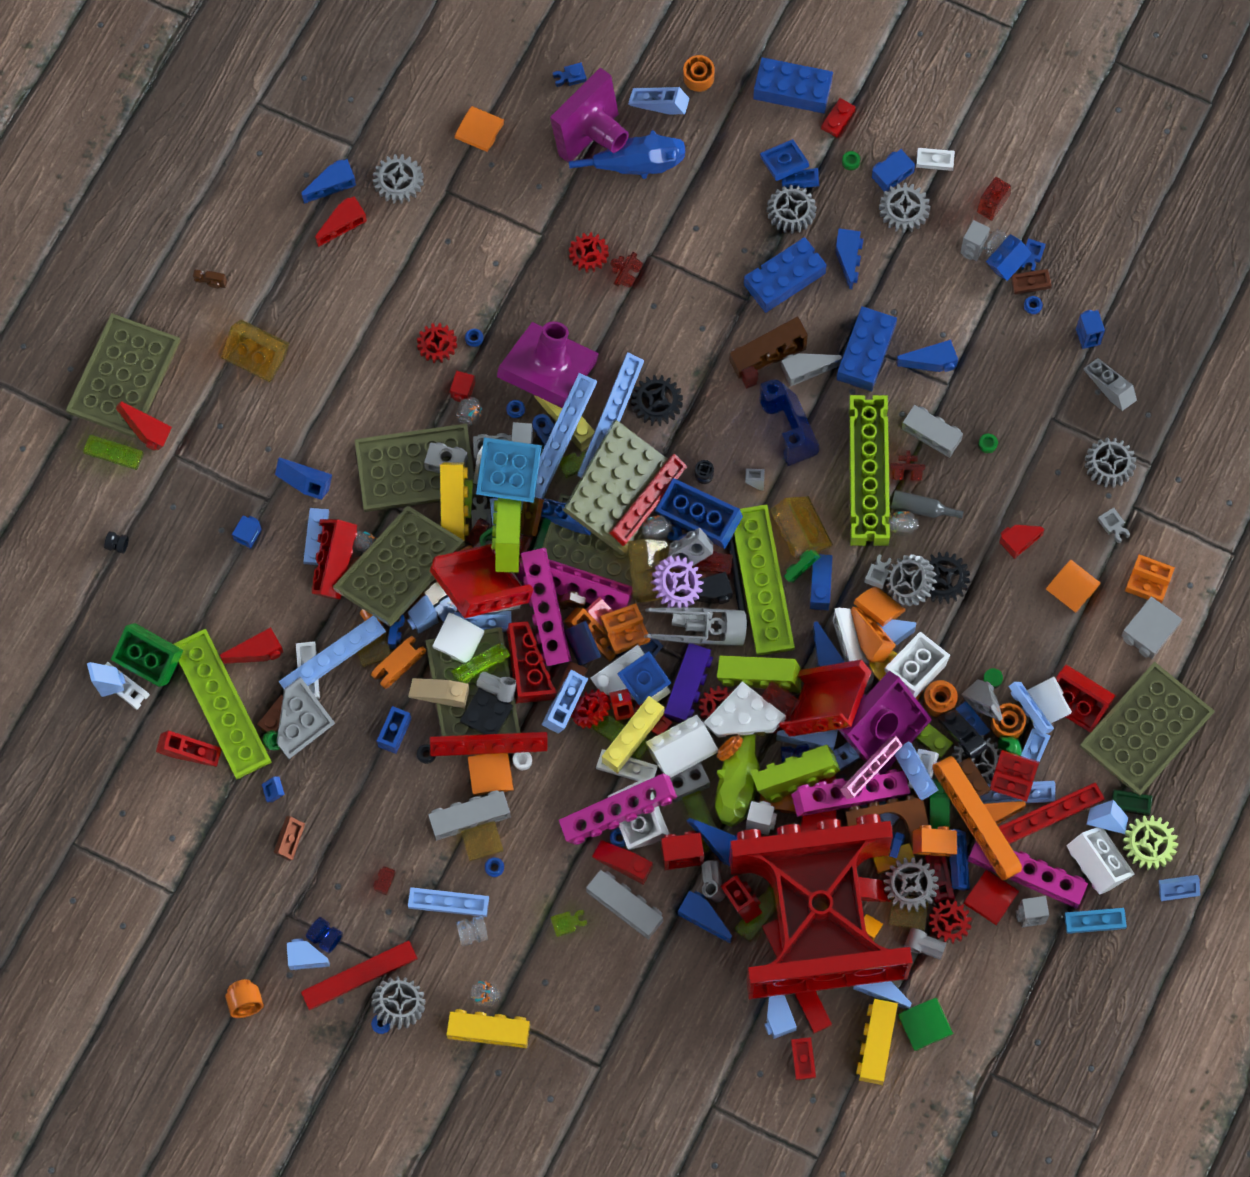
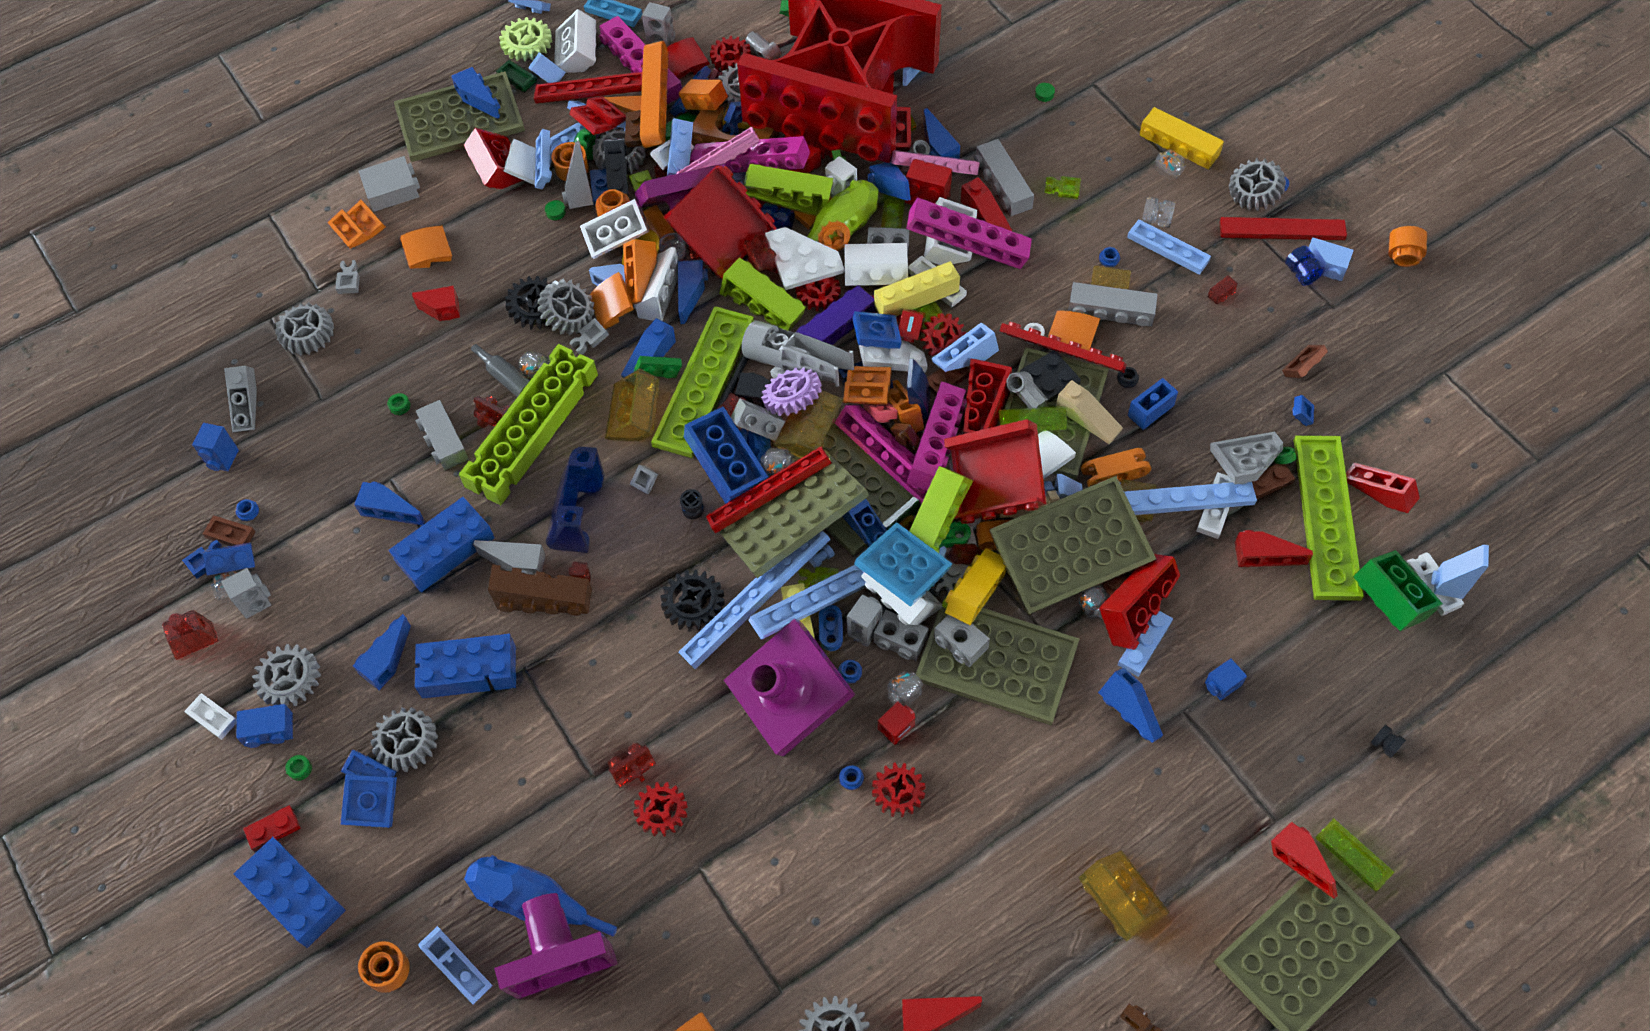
camera: 150 degrees left, 10 degrees down
(638, 1028) = (1044, 92): none -> green tile
(689, 879) = (957, 165): none -> bright pink piece
(1142, 748) = (473, 92): none -> blue slope

